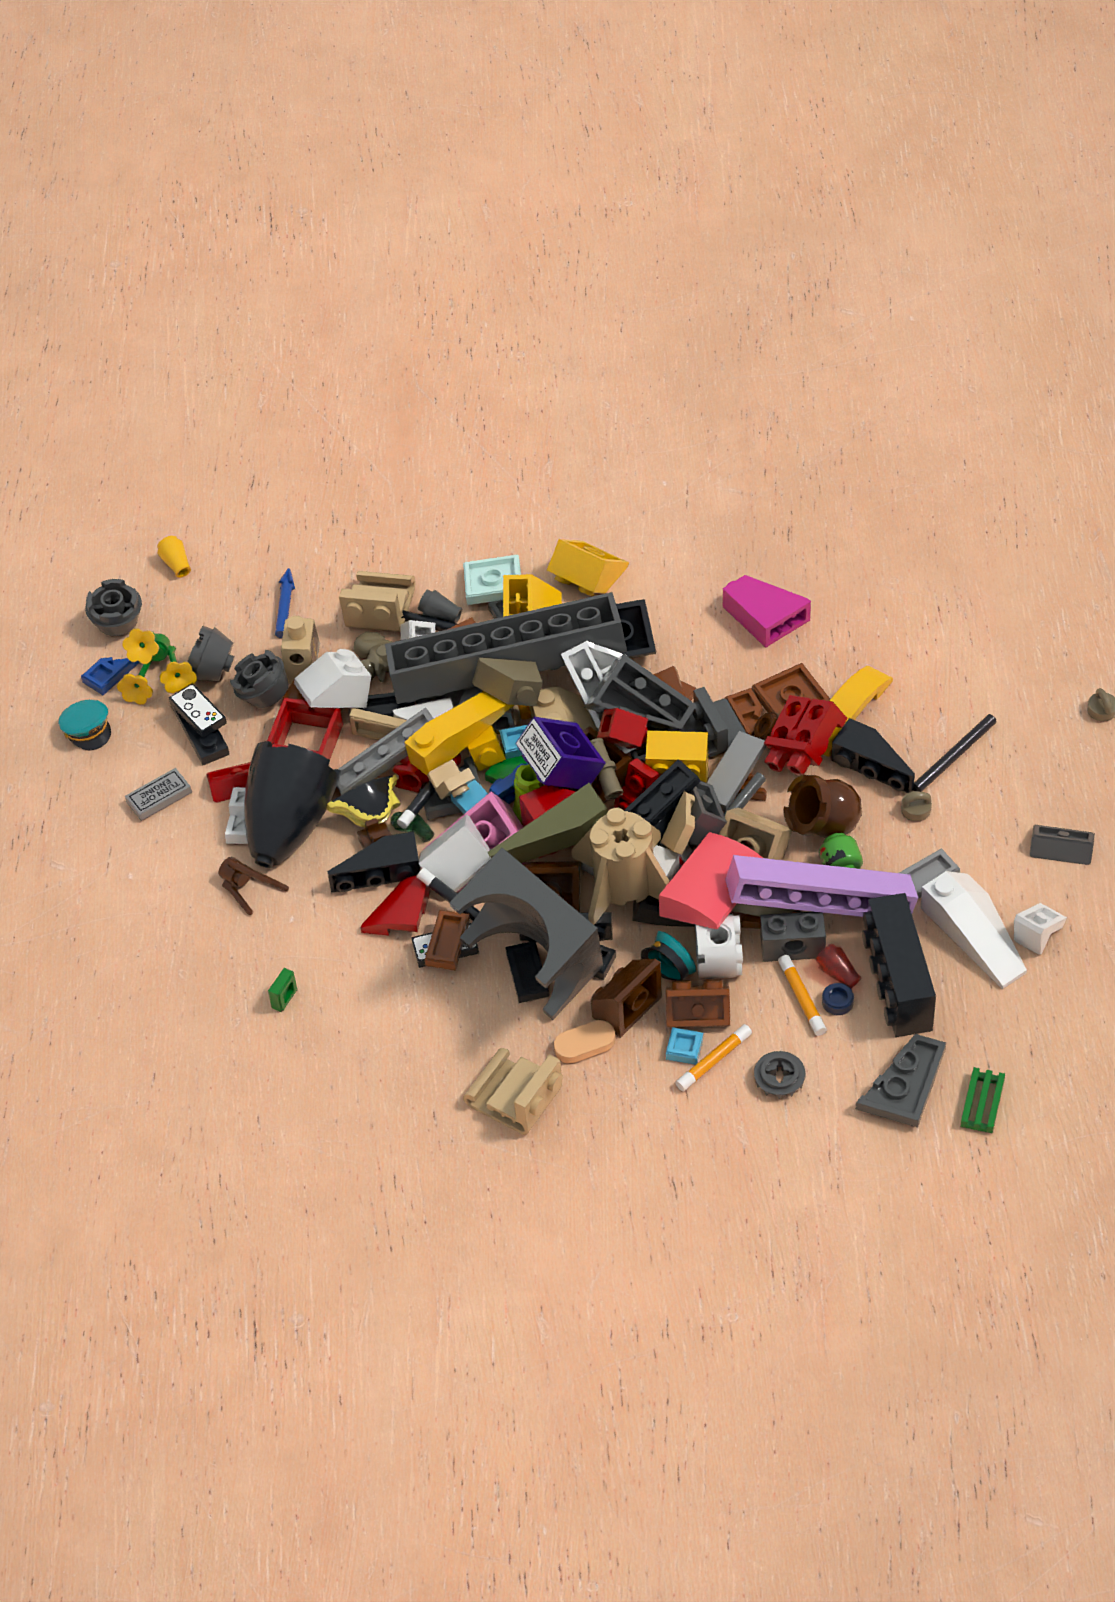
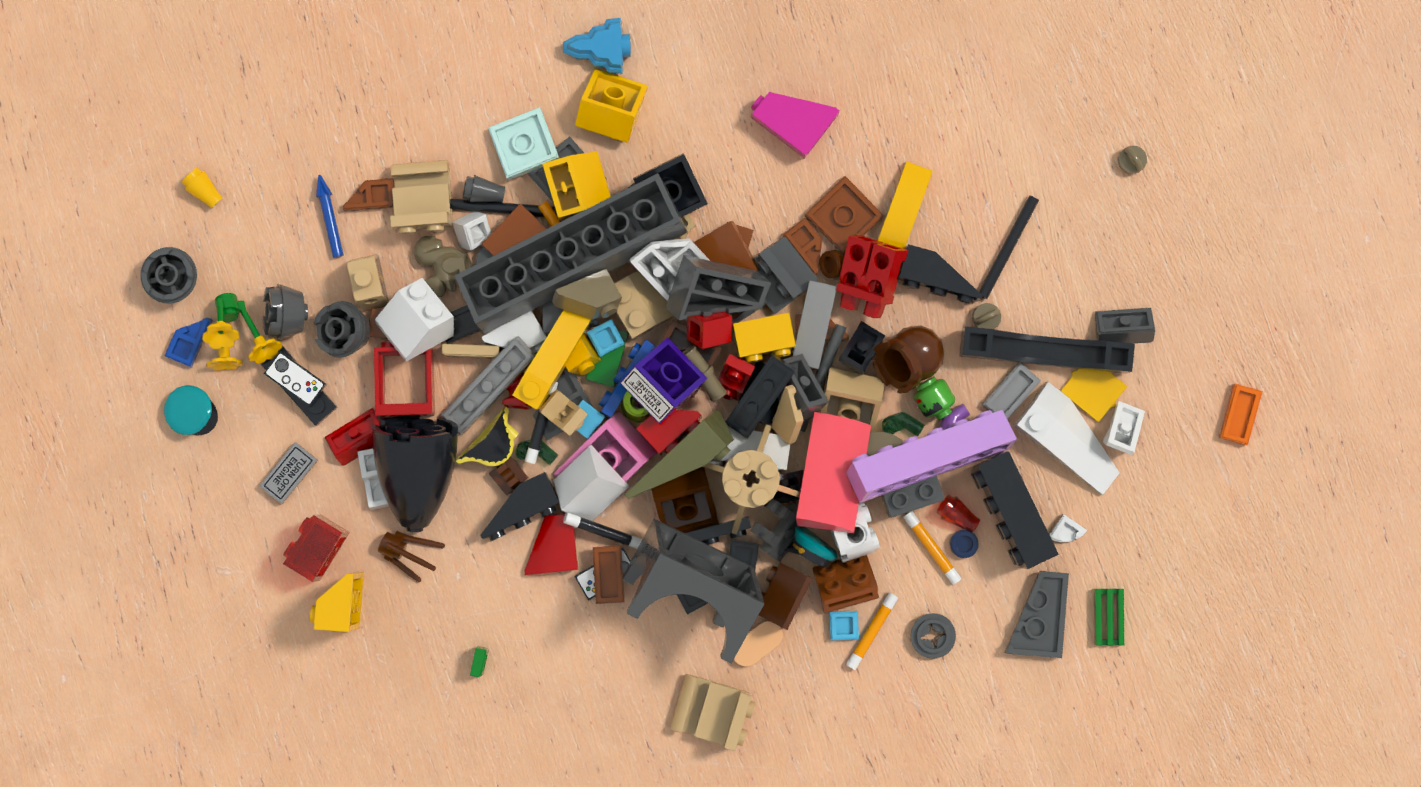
camera: 25 degrees left, 35 degrees up
(158, 847) = (315, 547): none -> clear red brick
(161, 890) = (340, 606): none -> yellow slope
(327, 595) = (372, 195): none -> dark orange tile
(595, 522) = (603, 46): none -> dark azure rock
(635, 941) = (782, 534): none -> dark grey plate
(769, 800) = (861, 348): none -> black slope
(955, 1010) = (1066, 530): none -> white tile
(1015, 890) = (1094, 391): none -> yellow piece
(1026, 853) = (1045, 350): none -> black arch

